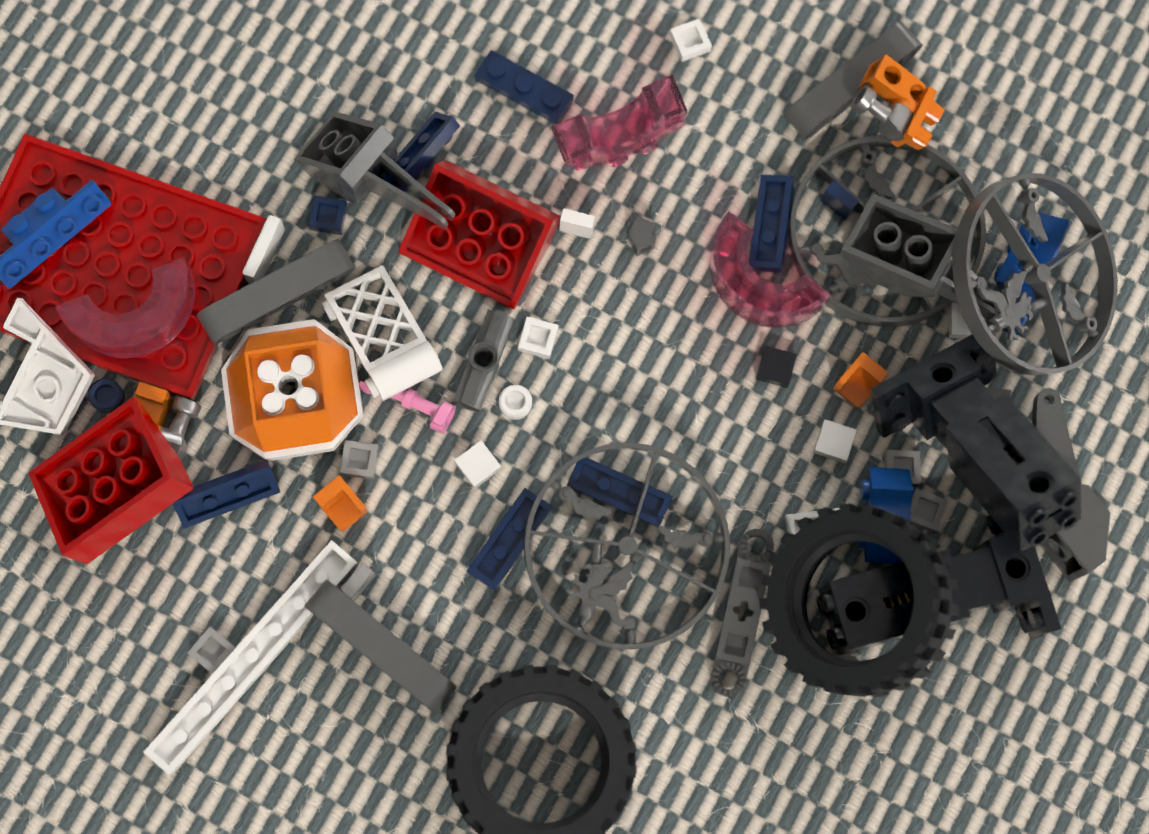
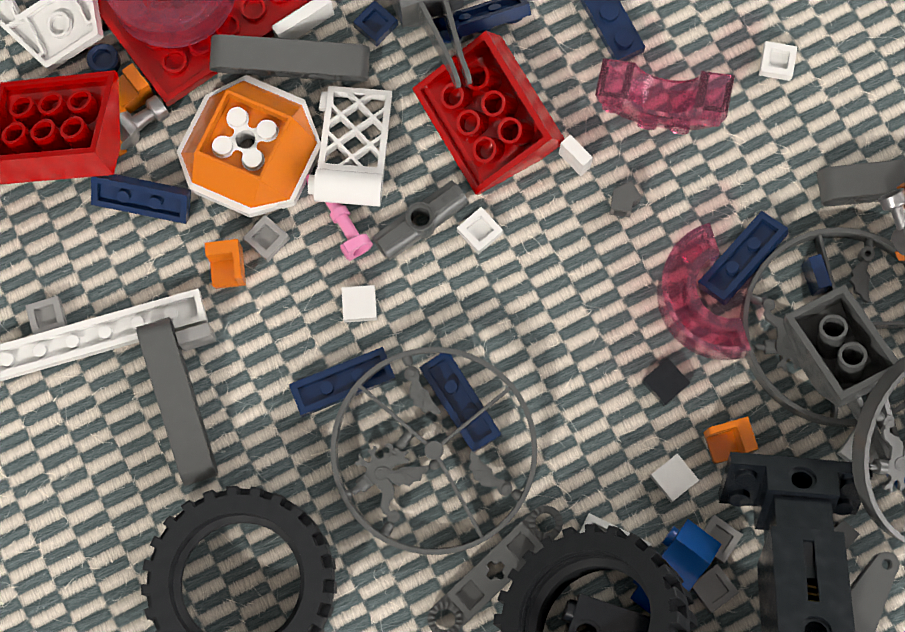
camera: 40 degrees right, 0 degrees up
(515, 402) = (425, 271): white tile -> none

